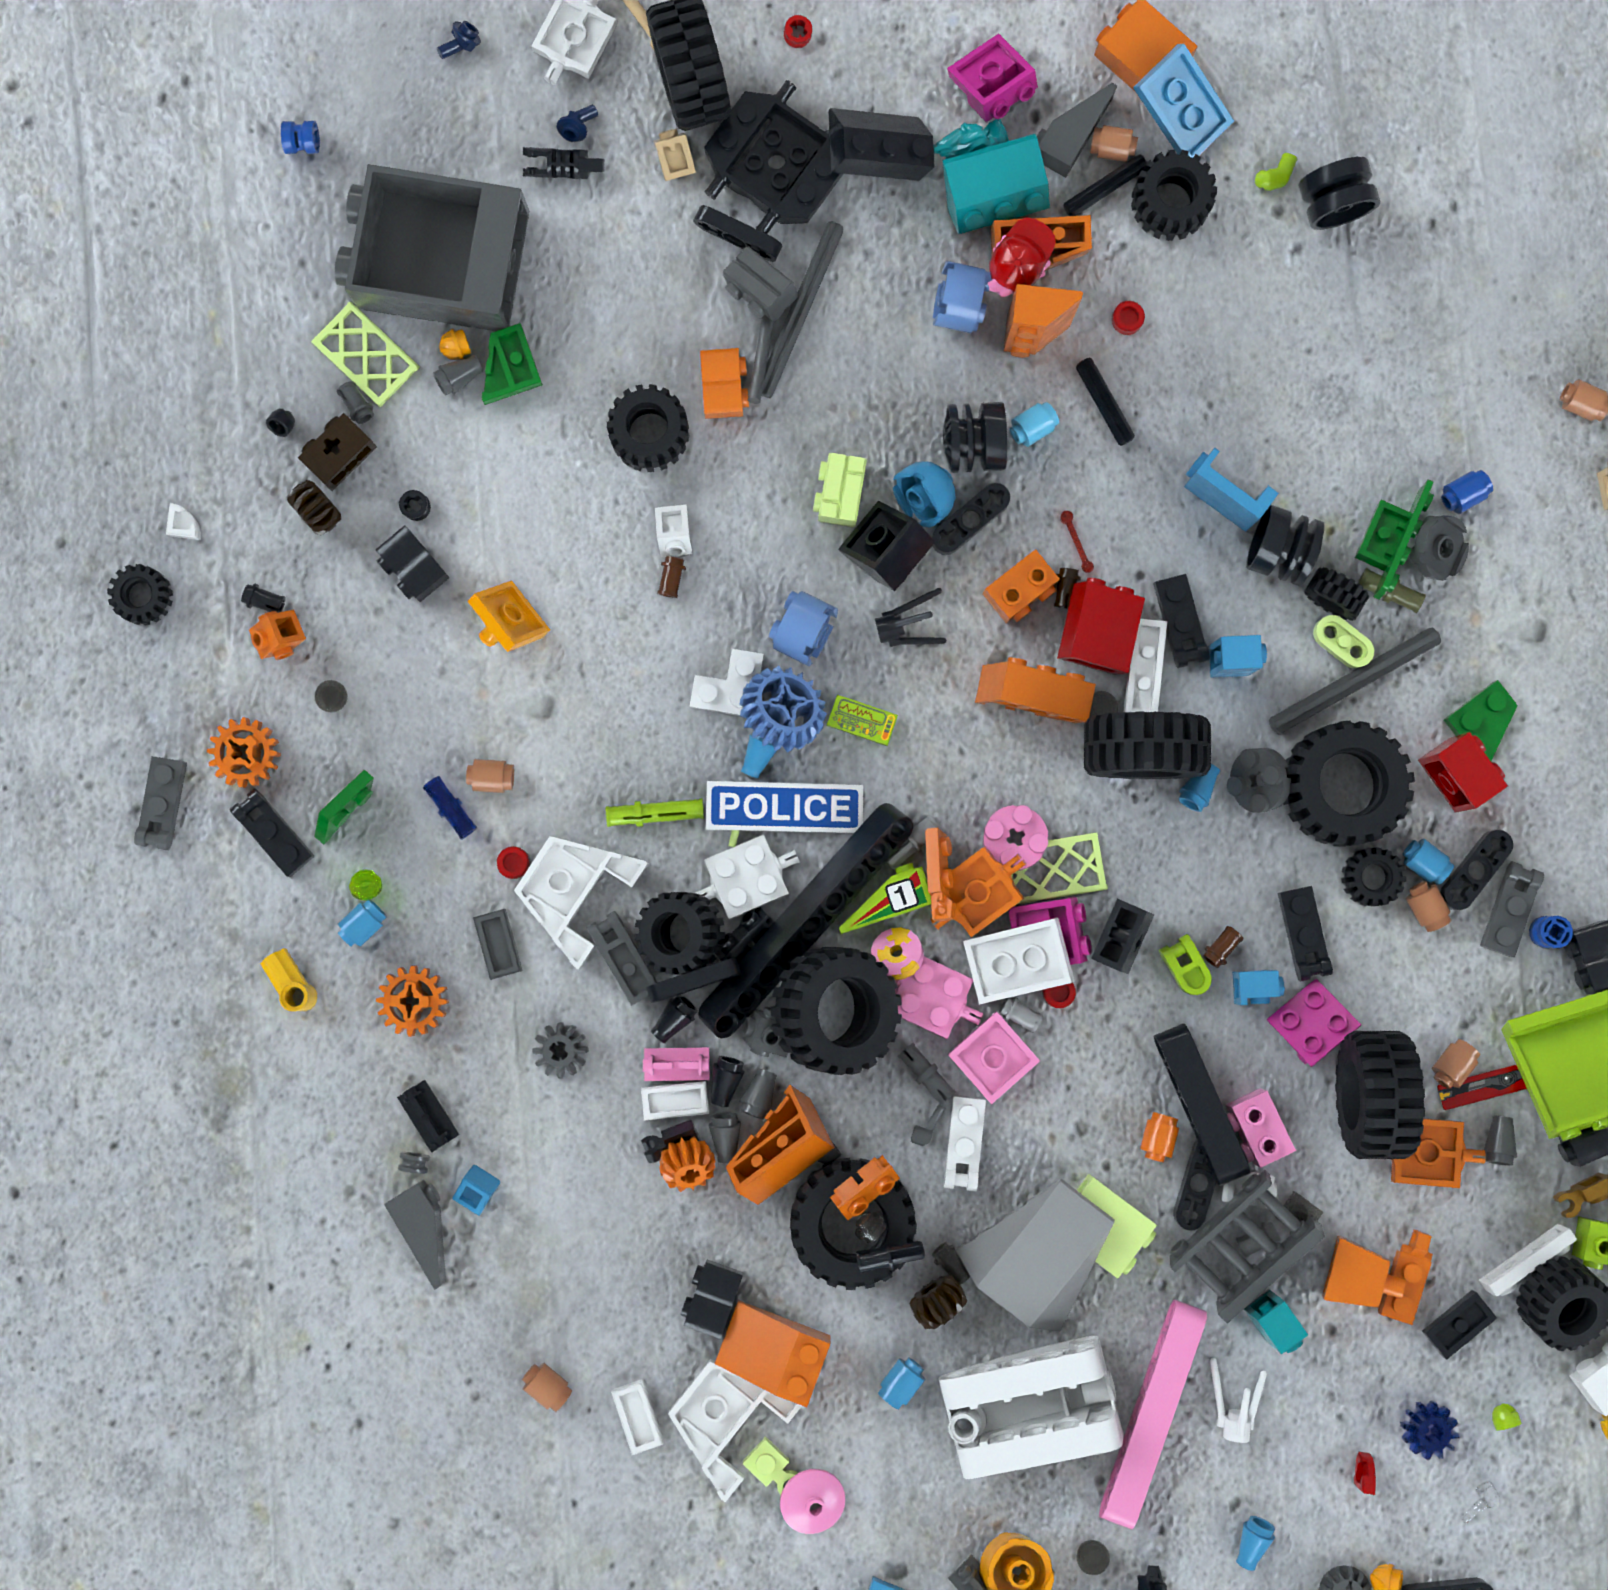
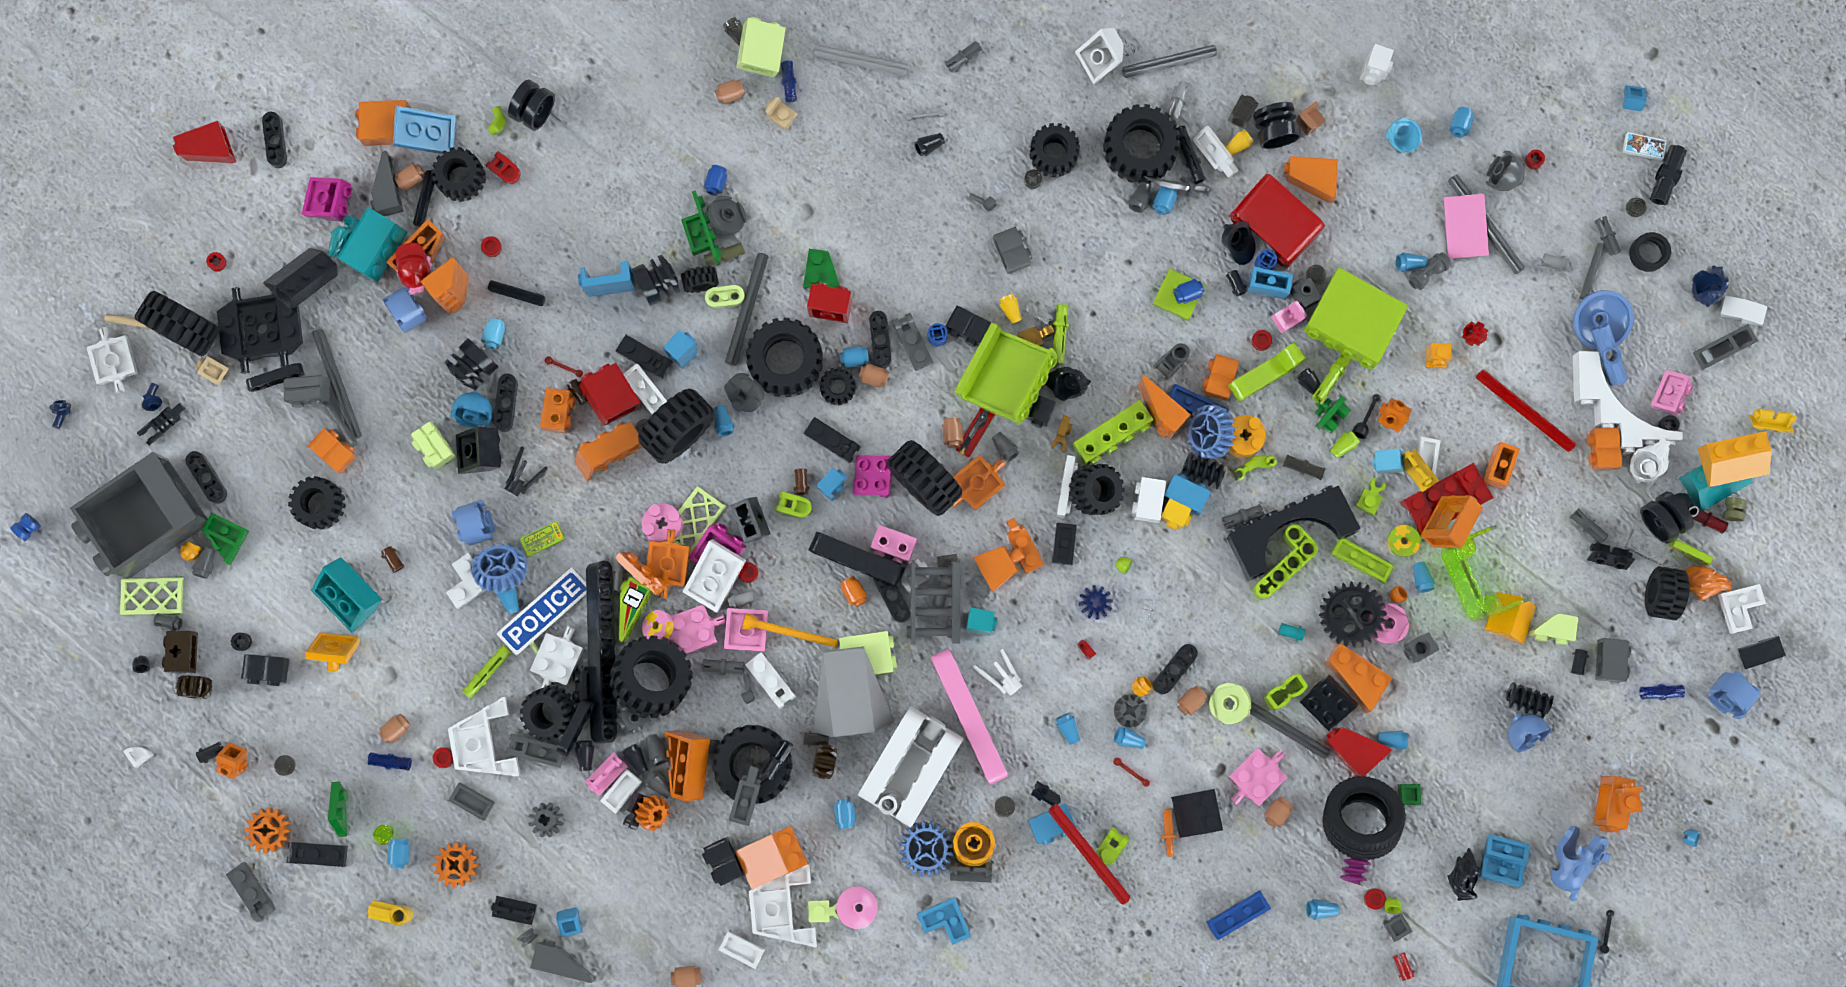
camera: 45 degrees left, 5 degrees down
(123, 585) = (161, 806): black tyre -> none
(565, 255) = (197, 473): none -> black beam
(581, 566) = (345, 594): none -> teal slope
(673, 531) = (373, 537): white bracket -> none
(811, 1263) = (746, 797): none -> dark grey hinge
(878, 1180) = (737, 750): orange hinge -> none
(969, 1519) = (913, 861): none -> medium blue gear
(1009, 1057) = (751, 622): none -> light orange piece
(1231, 249) = (508, 172): none -> red plate

